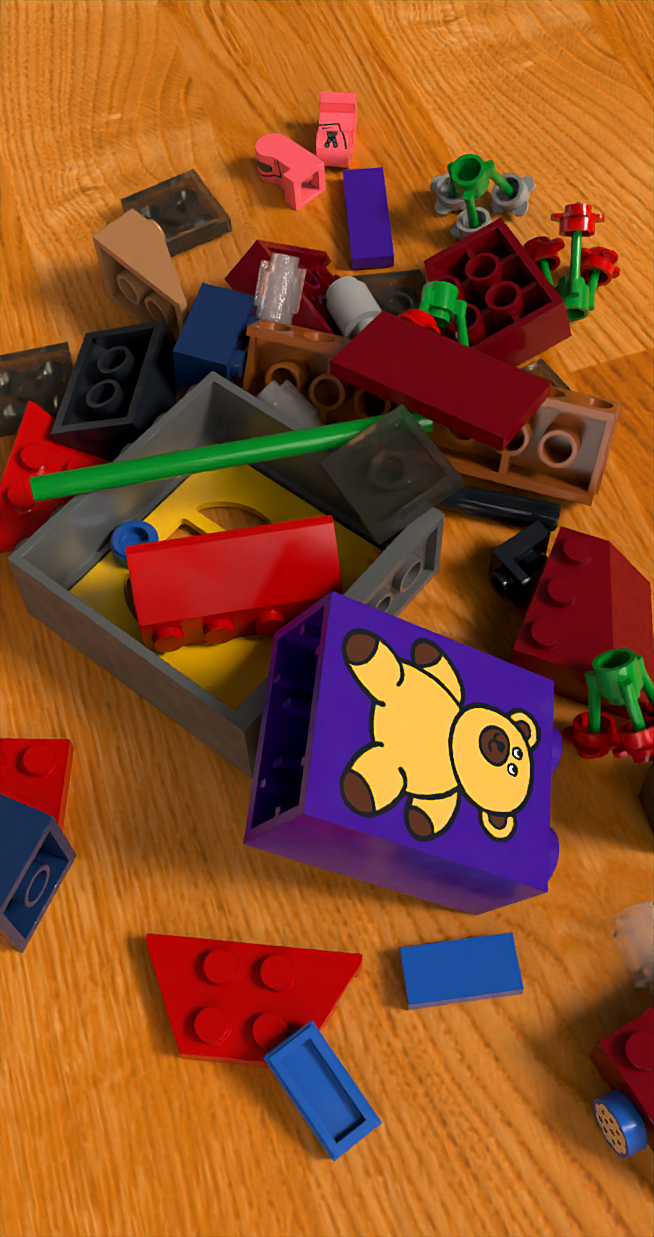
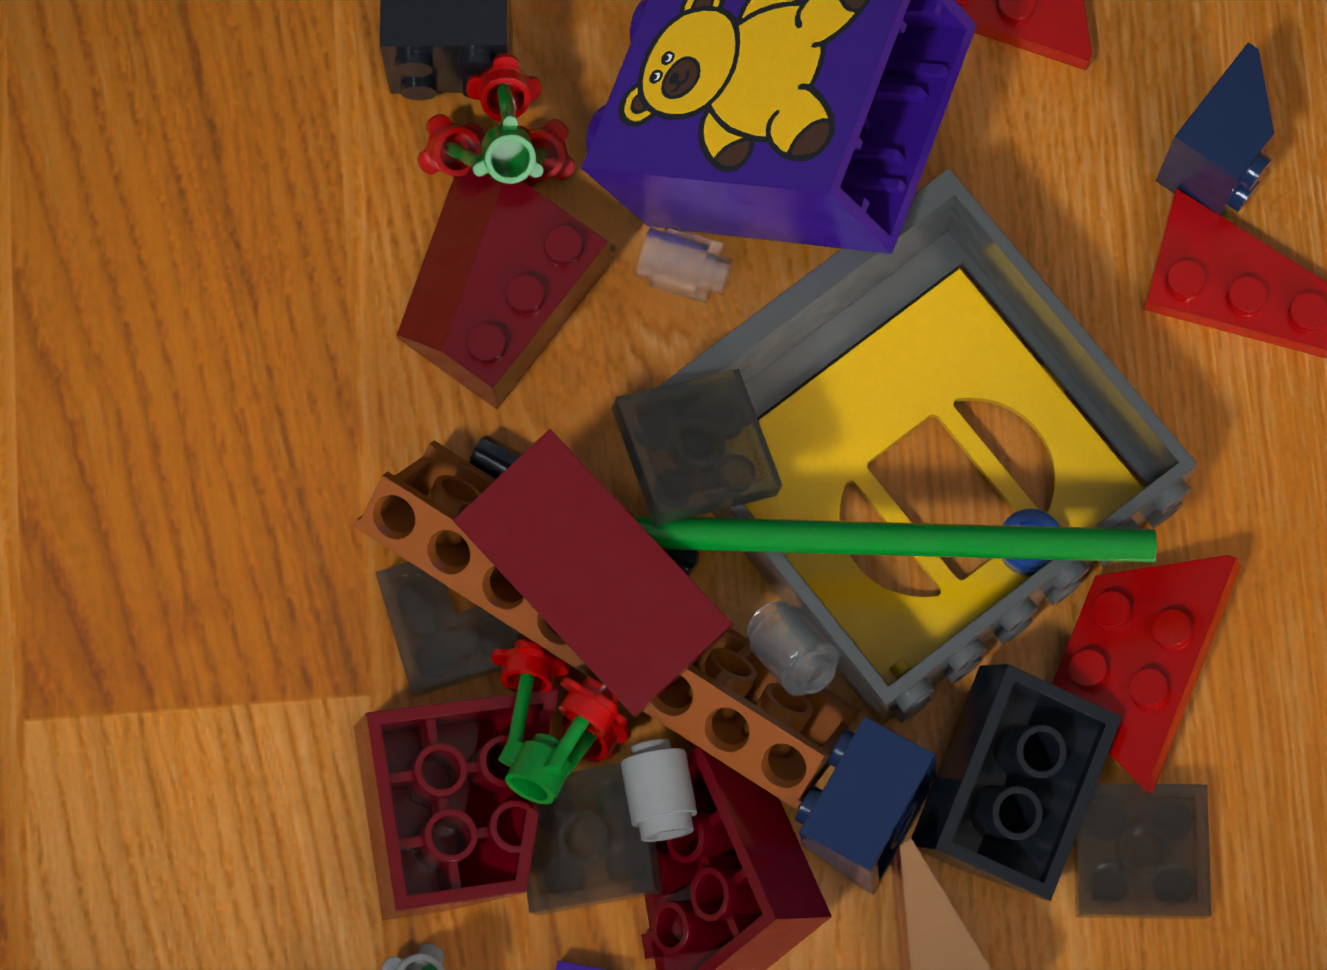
camera: 170 degrees left, 15 degrees up
(231, 581) = (915, 409): red slope -> none
(279, 288) = (763, 817): clear brick -> none
(516, 561) = (547, 397): black bracket -> none
(588, 266) = (296, 849): red plant -> none

